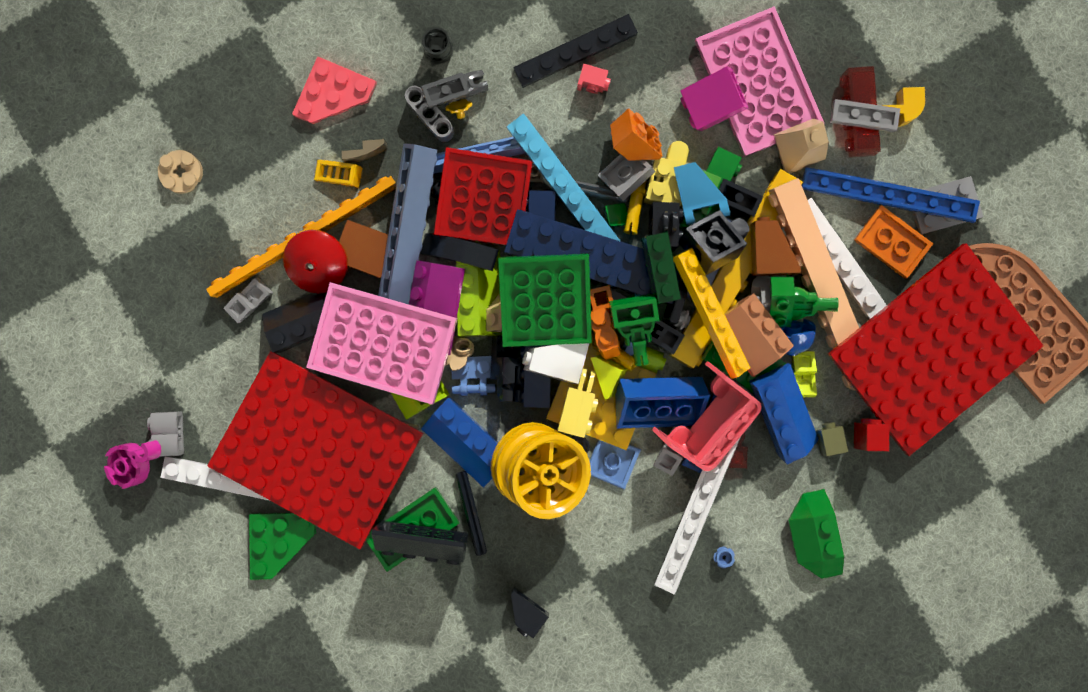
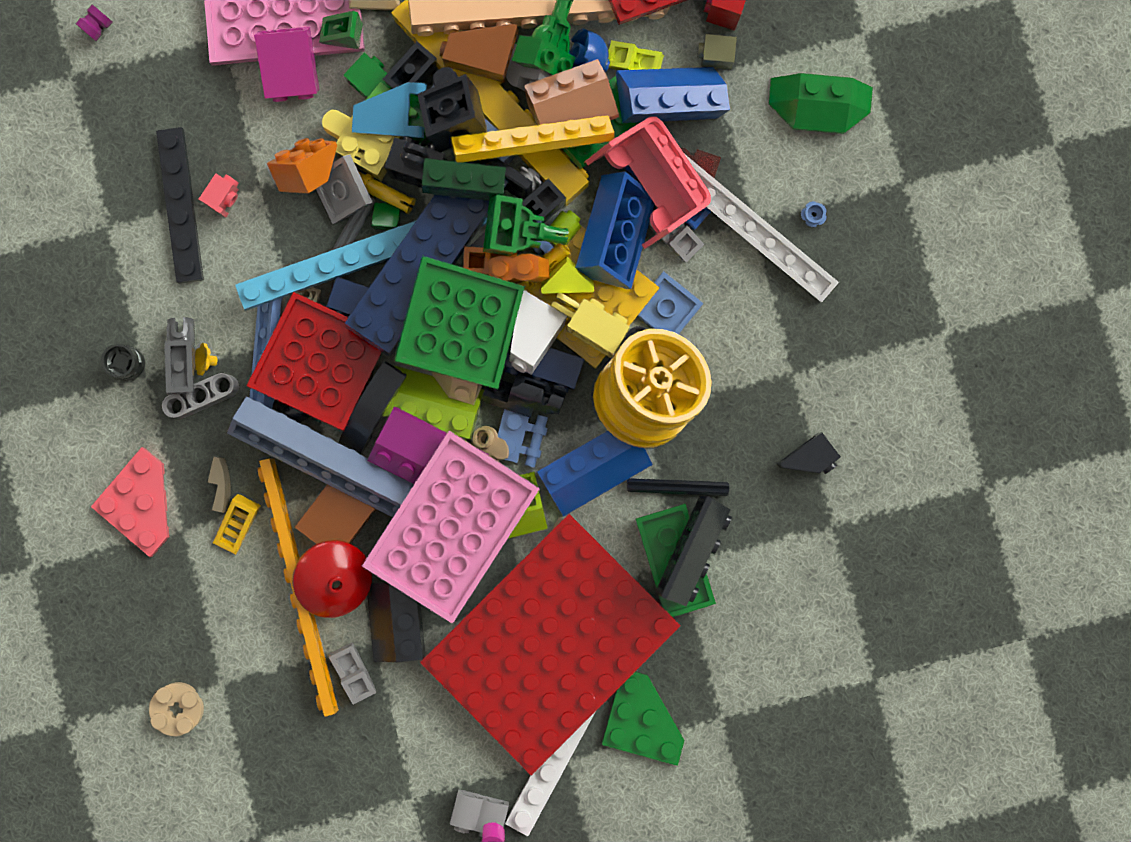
camera: 80 degrees left, 0 degrees up
(753, 134) = (342, 30): none -> green slope

